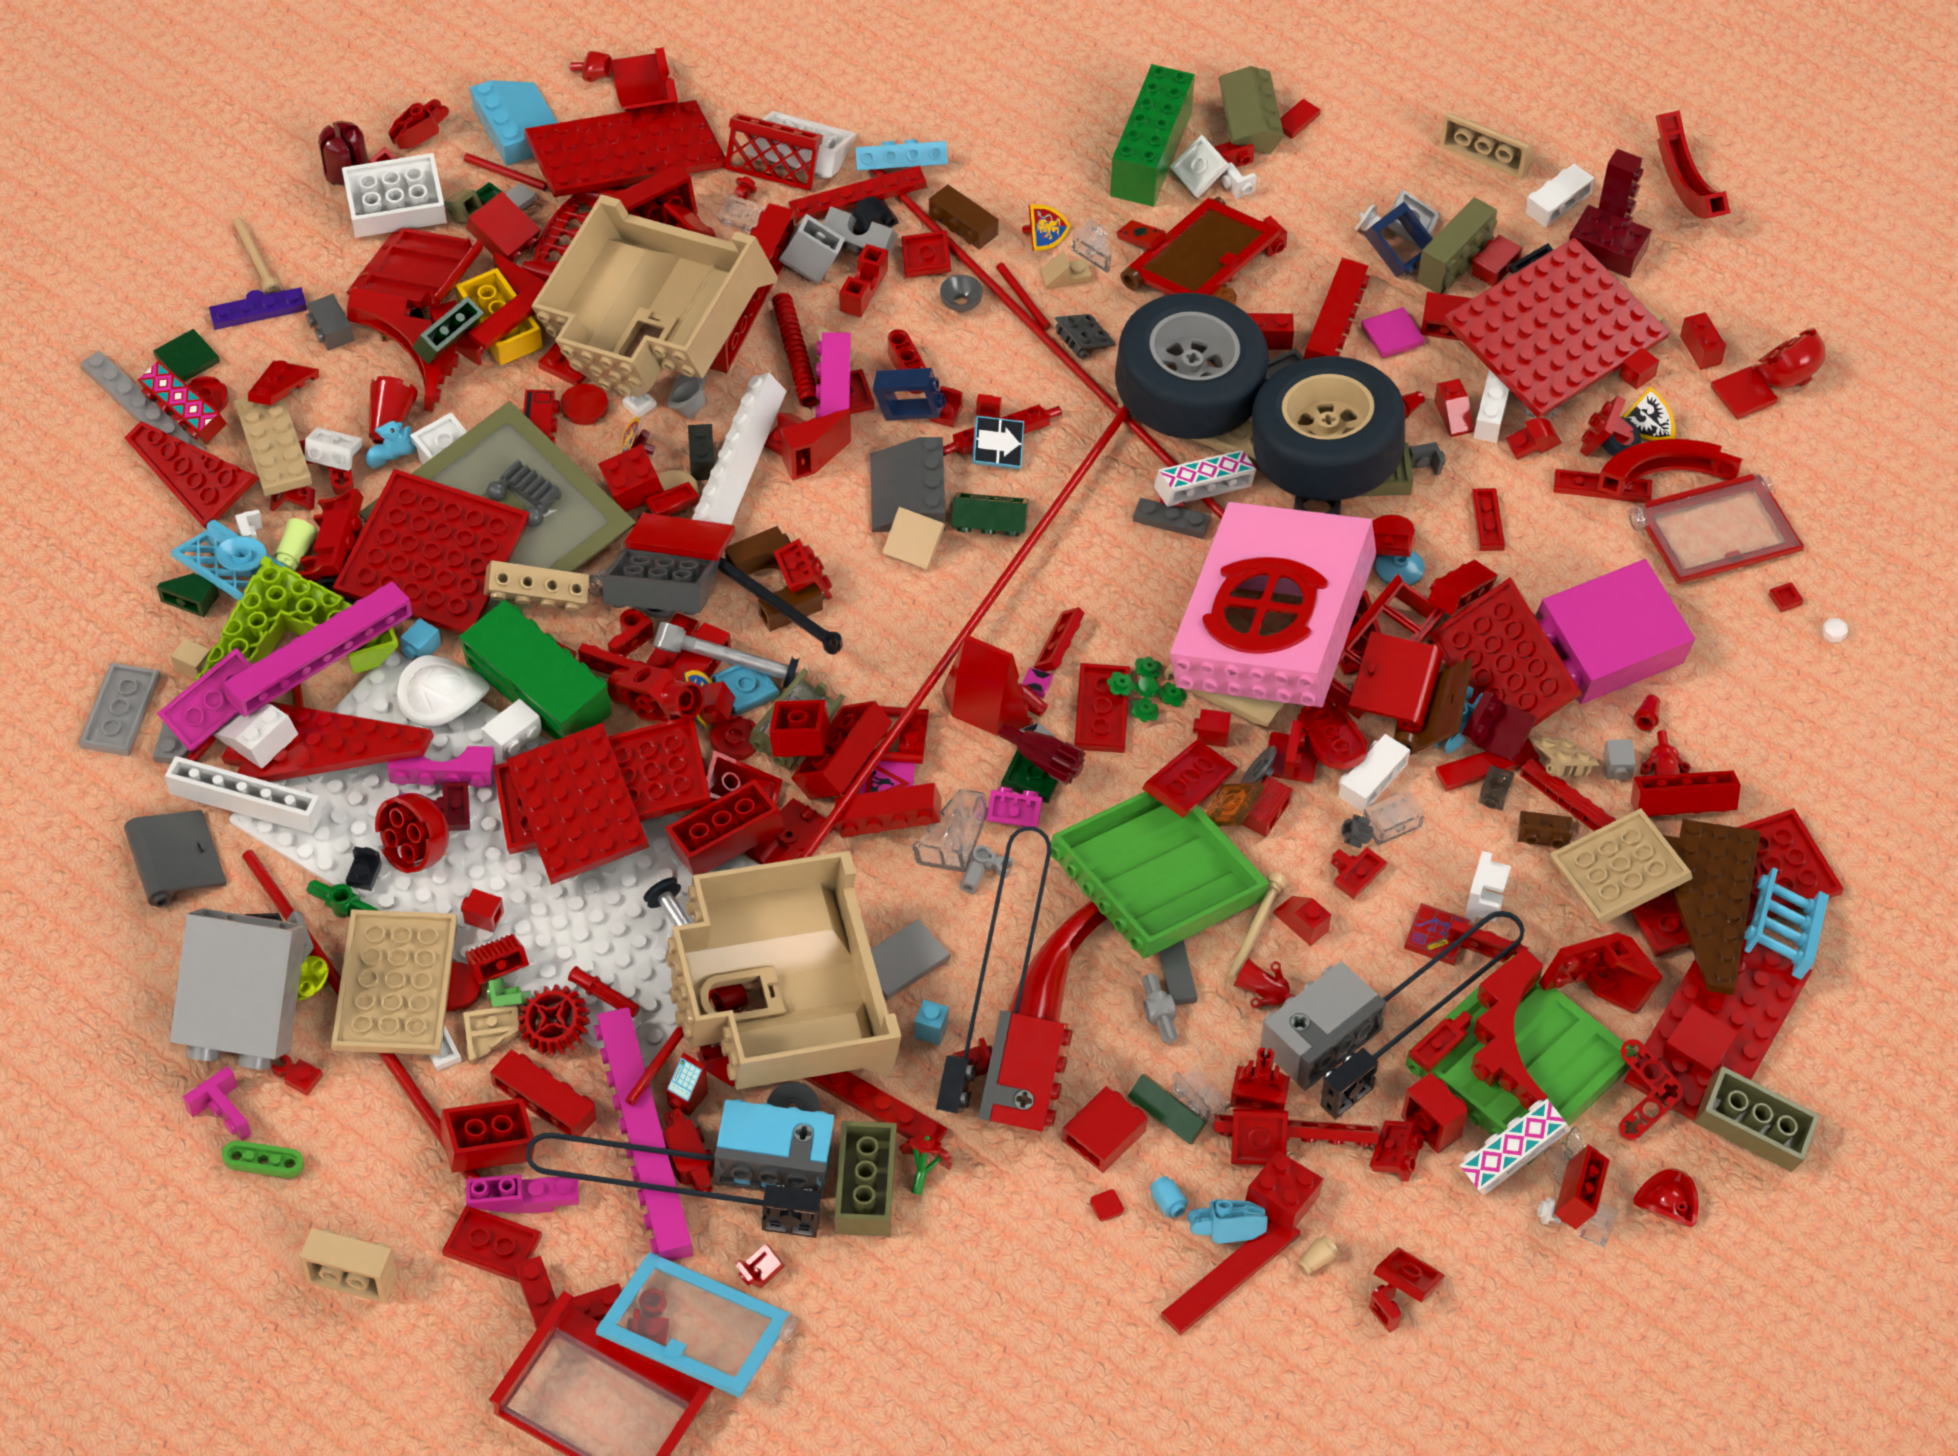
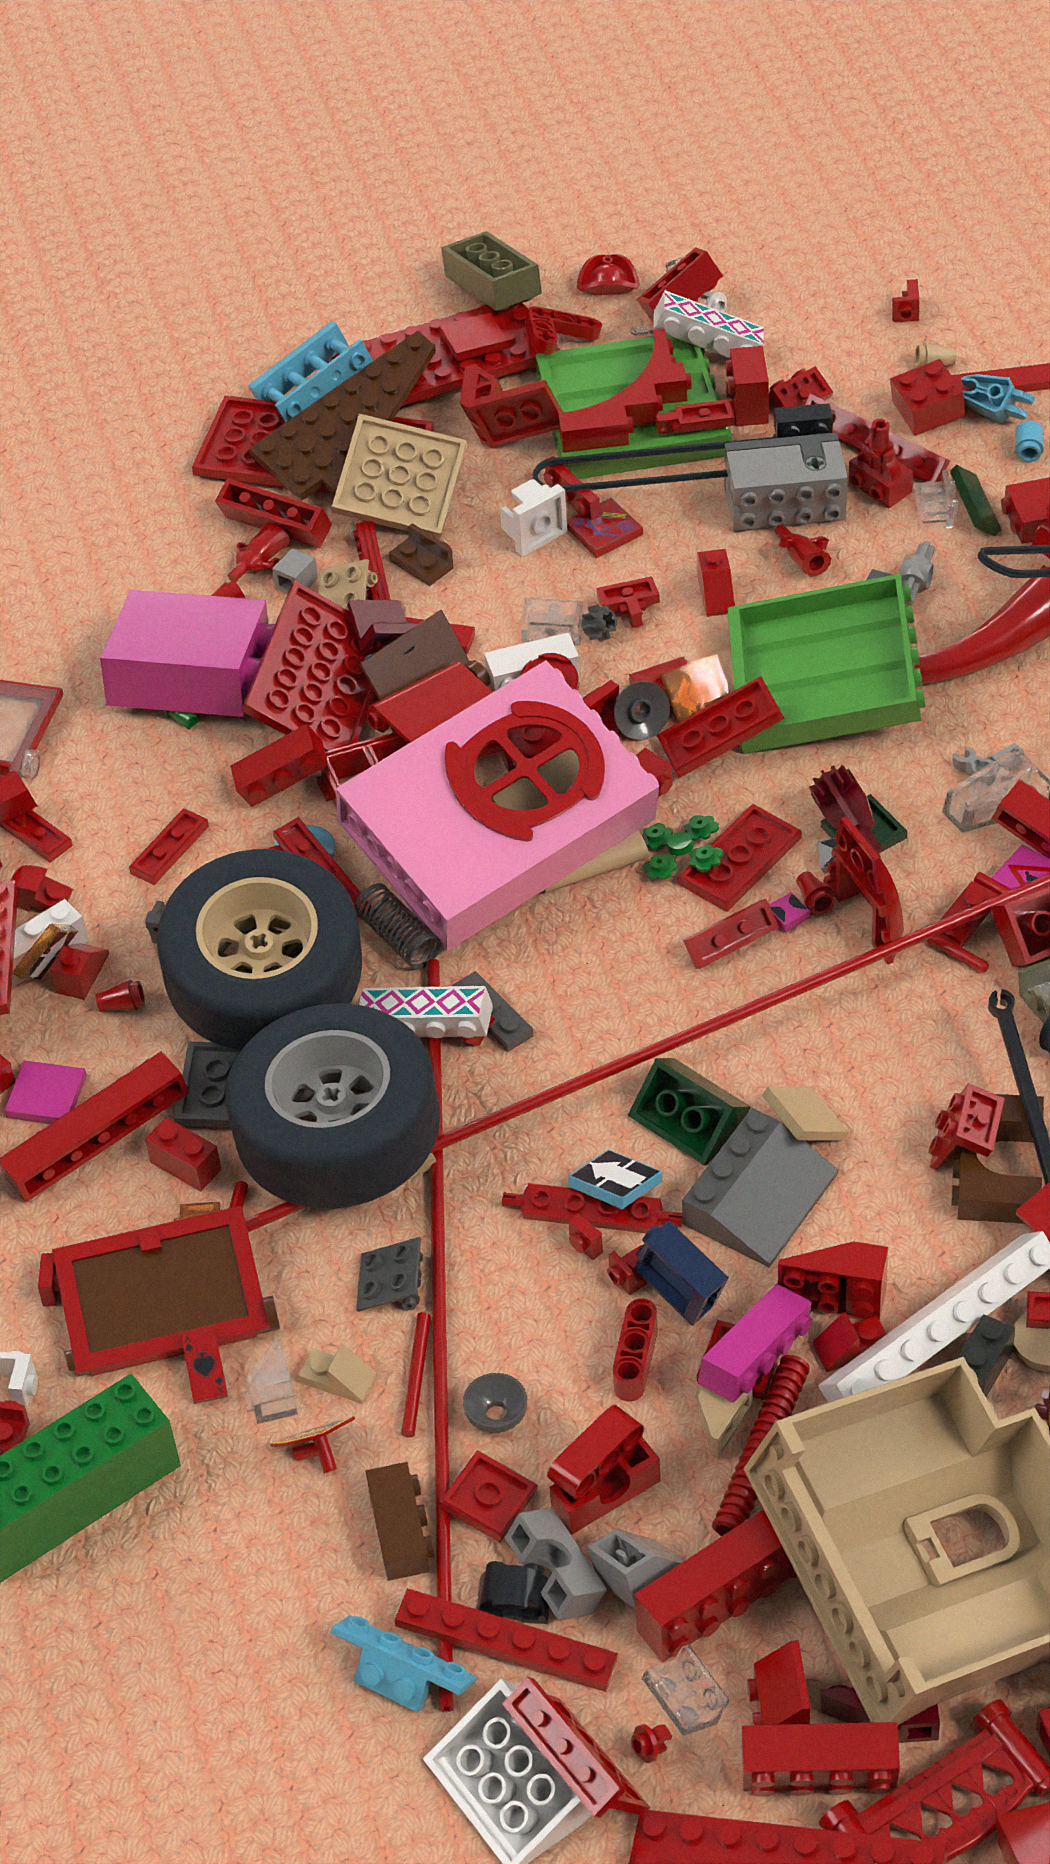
camera: 140 degrees left, 5 degrees down
(872, 267) = (595, 1452): none -> red beam
(1014, 808) = (910, 799): dark pink bracket -> none
(1200, 166) = (38, 1405): white tile -> none
(1258, 1135) = (918, 437): red tile -> none
(1277, 885) = (716, 622): tan piece -> none
(1409, 1274) = (873, 307): red tile -> none
(1471, 382) = (44, 951): none -> tile
(1501, 782) = (431, 598): clear smoke brick -> none

